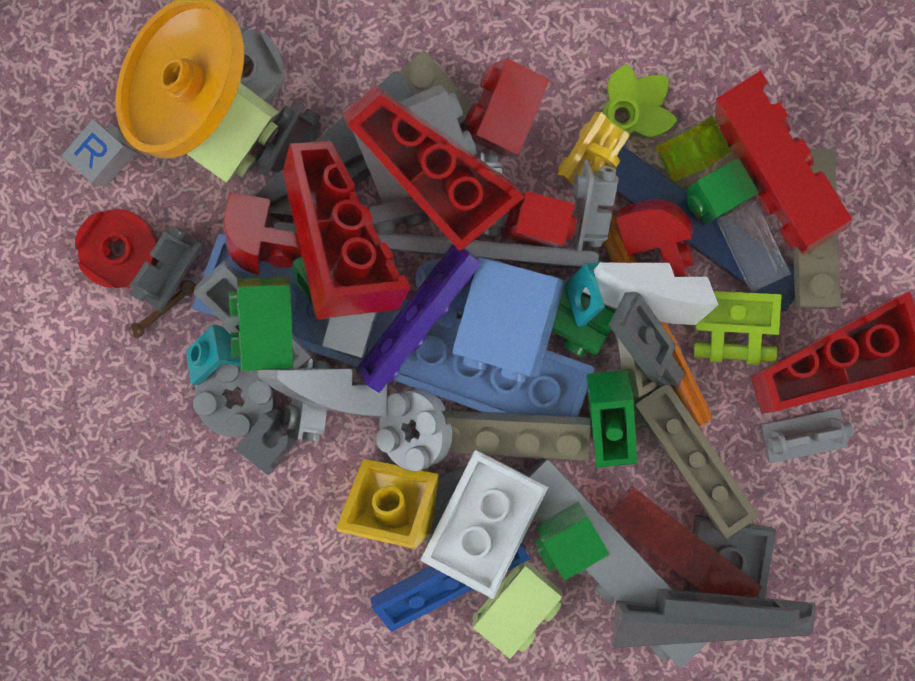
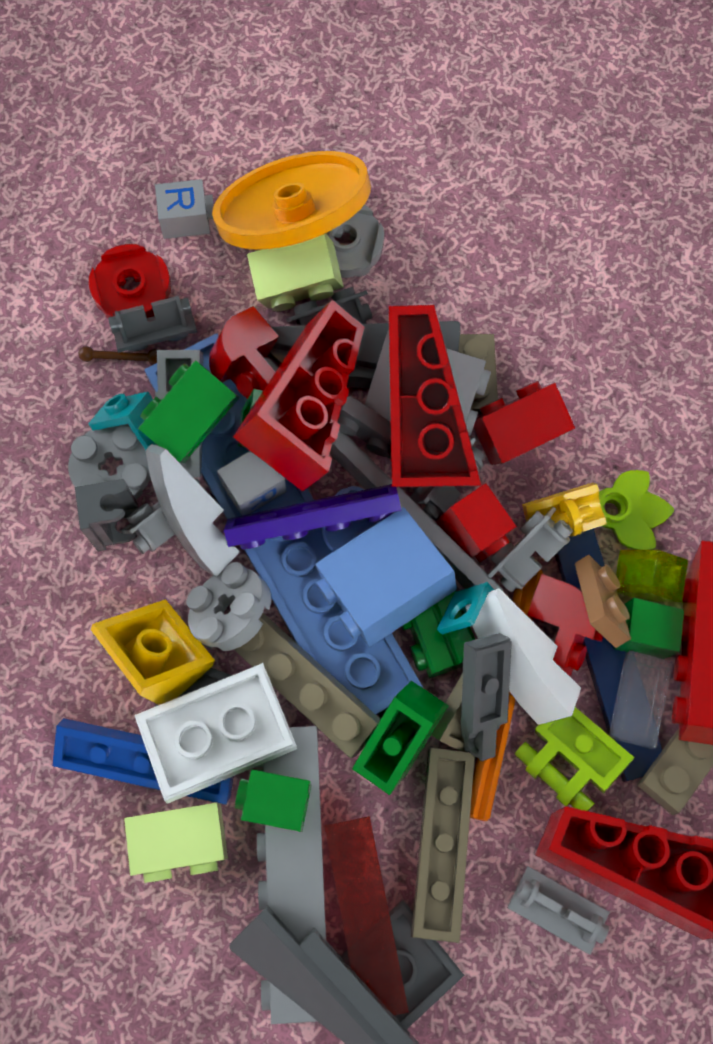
camera: 40 degrees right, 15 degrees down
(675, 202) = (602, 602): none -> medium nougat plate

